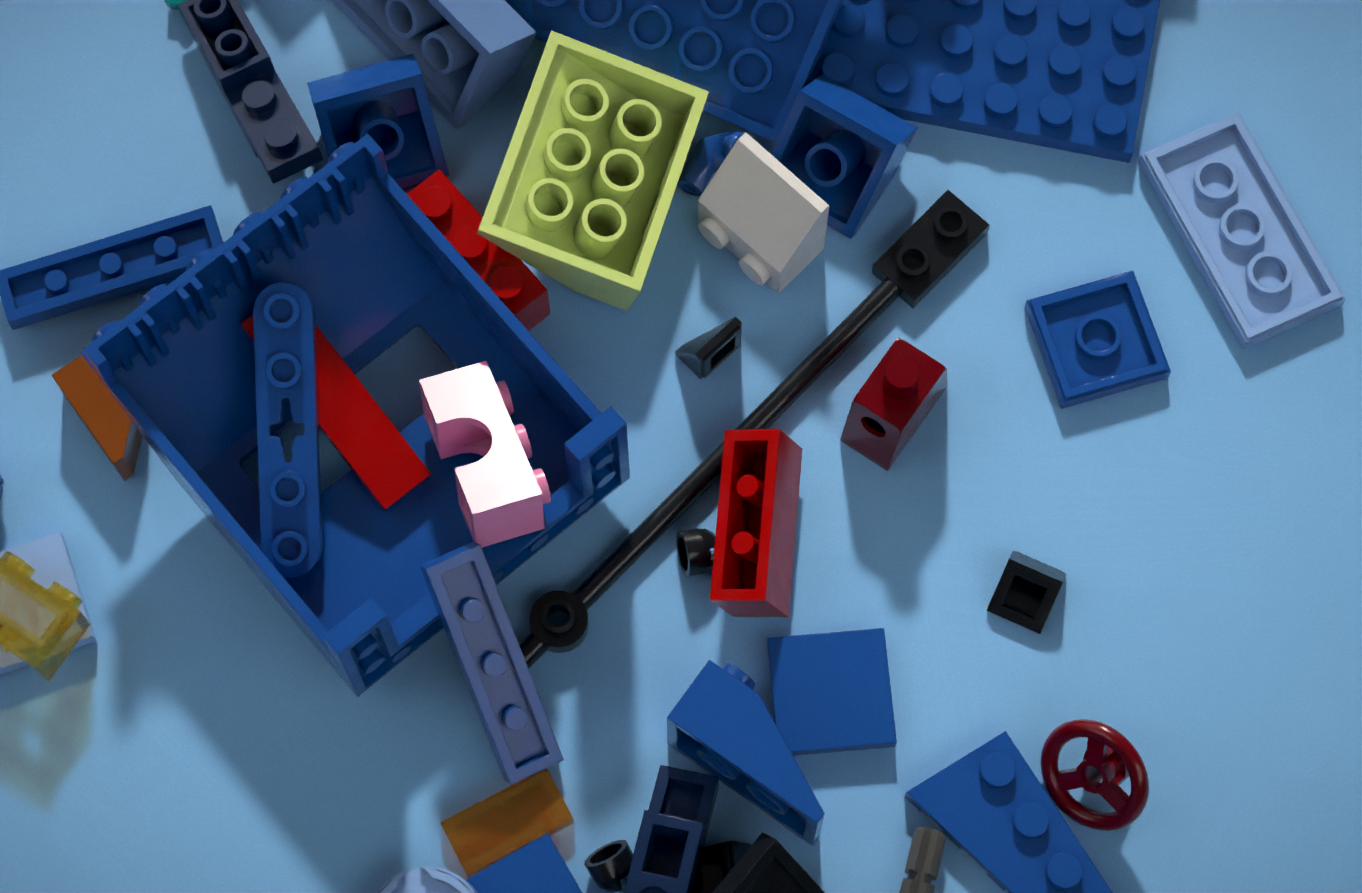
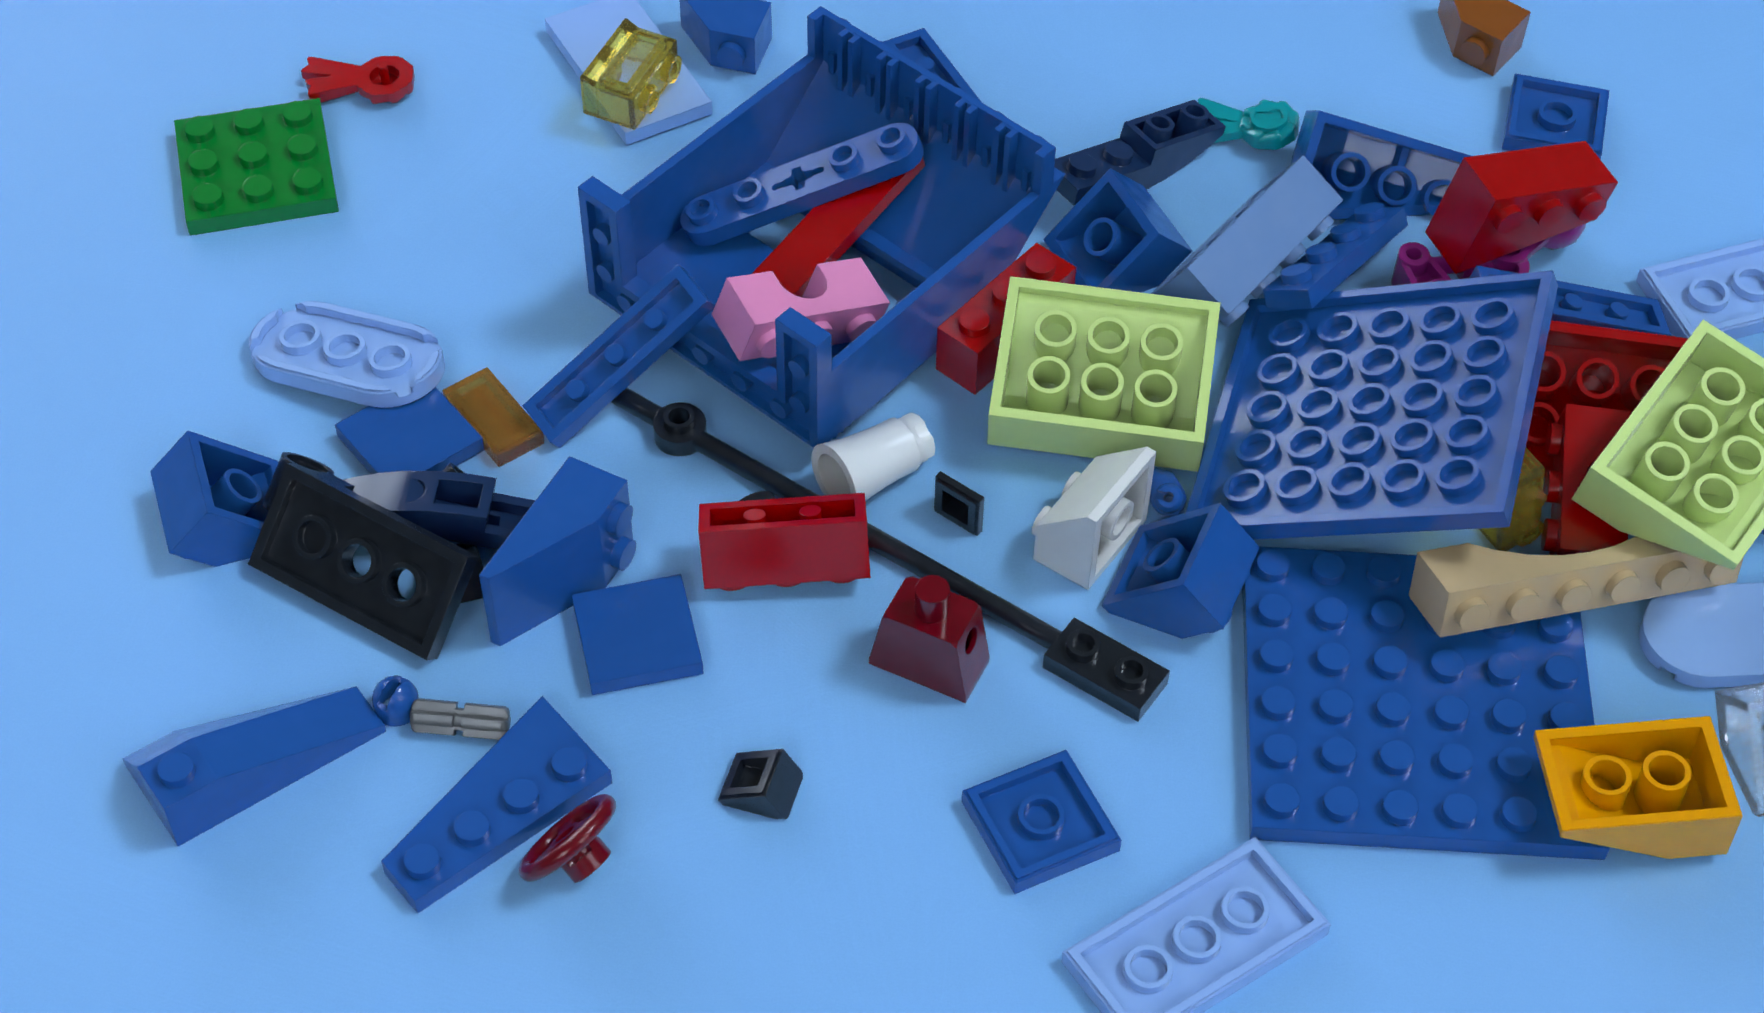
camera: 80 degrees right, 20 degrees down
(659, 436) = (873, 457): none -> white plant

